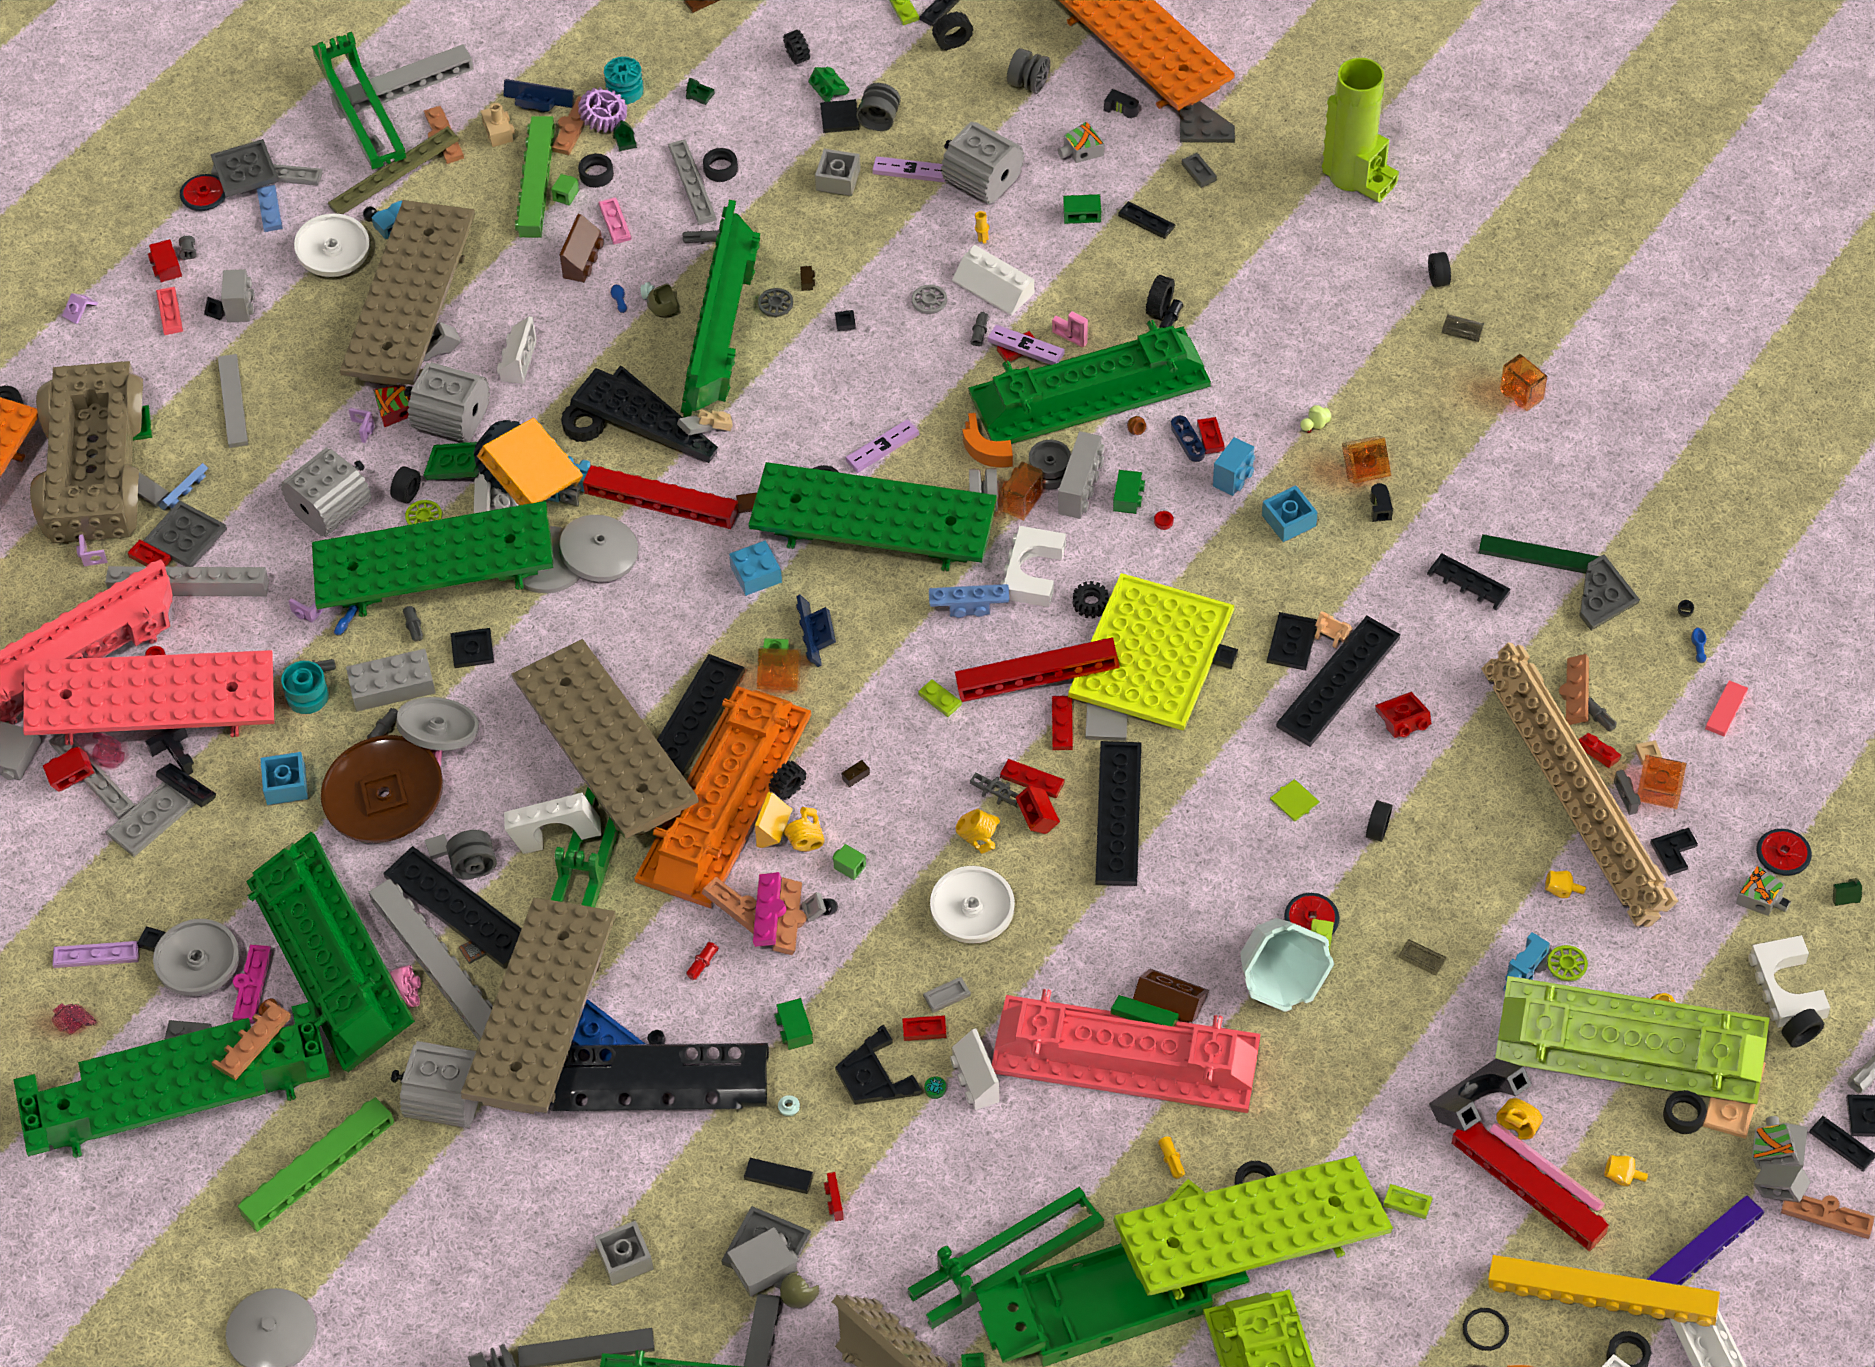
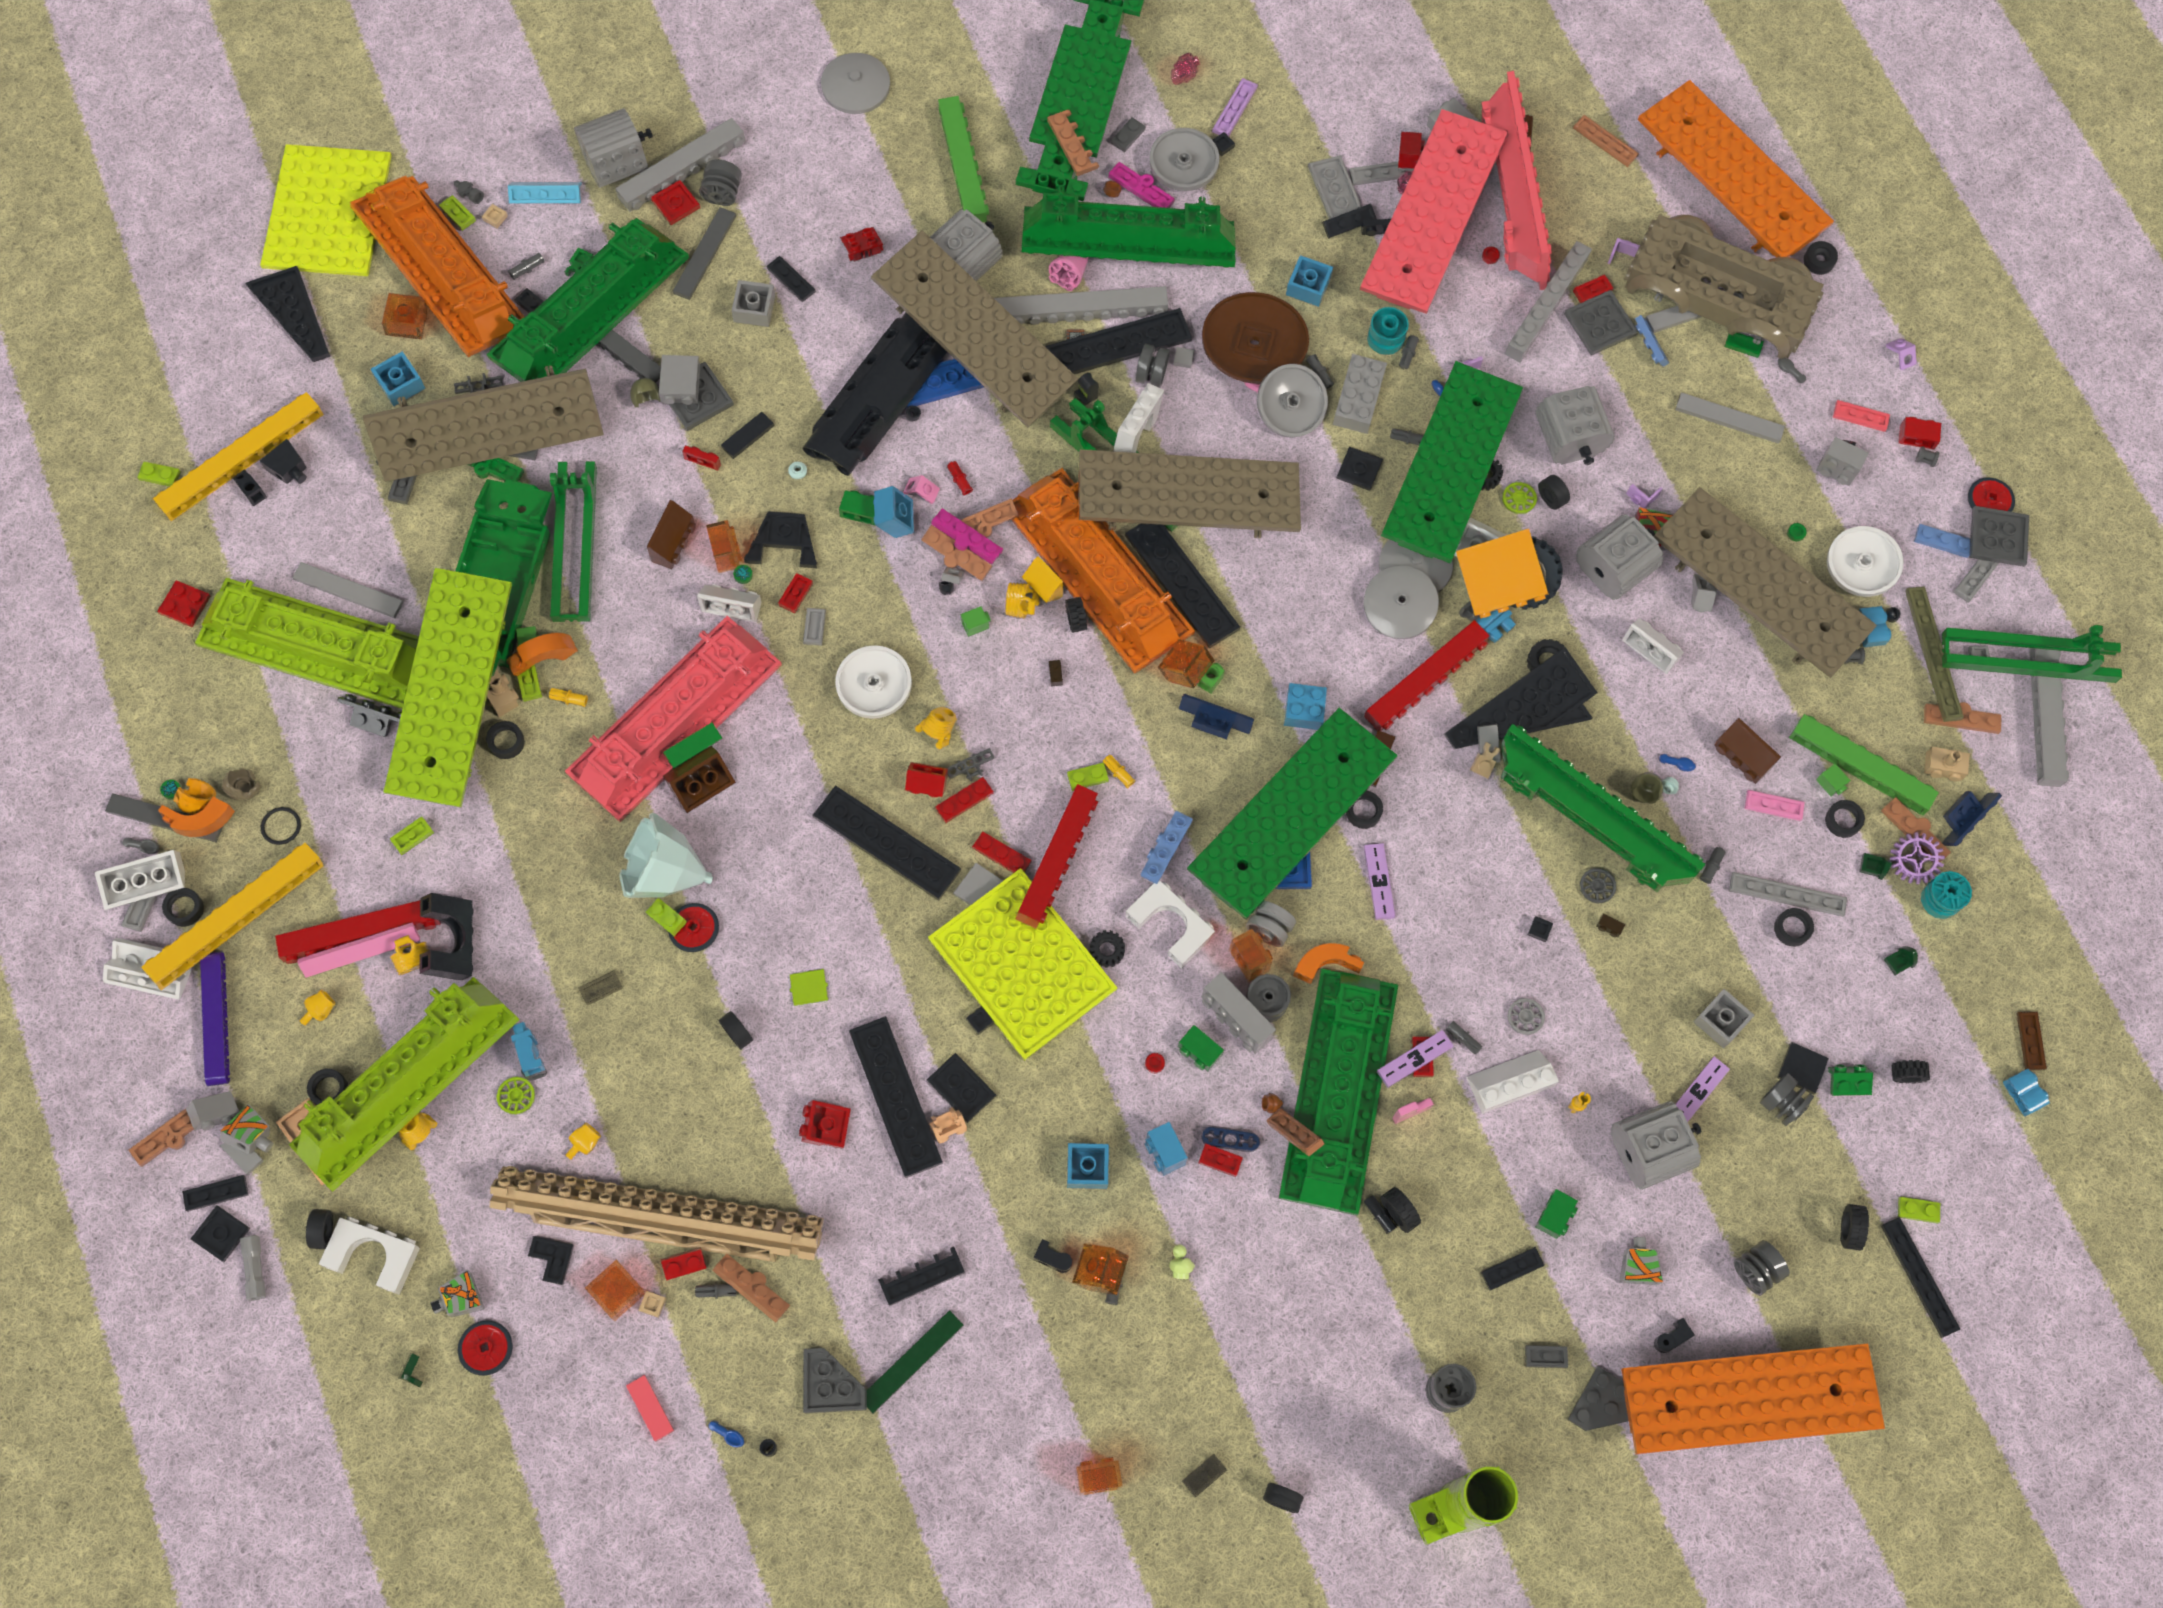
camera: 115 degrees right, 15 degrees up
(148, 379) = (1787, 366): none -> dark grey piece
(327, 308) = (1796, 532): none -> green tile
(451, 461) = (1563, 536): green plate -> none
(479, 1202) = (862, 241): none -> red hinge
(526, 896) = (1087, 389): none -> black leg
(565, 1246) = (791, 279): none -> black tile
(737, 981) = (923, 488): none -> bright pink bracket
(785, 981) = (893, 512): none -> dark azure brick
(918, 675) = (1119, 771): none -> yellow axle
(922, 1108) = (724, 545): none -> clear orange brick
(942, 1167) = (671, 535): none -> reddish brown slope
(1140, 1191) = (540, 648): none -> orange arch
(1154, 383) = (1295, 1132): none -> nougat tile
(1273, 208) = (1461, 1385): none -> dark grey wheel
(1318, 1315) = (369, 716): none -> bracket
(1625, 789) = (635, 1259): dark grey plate -> none

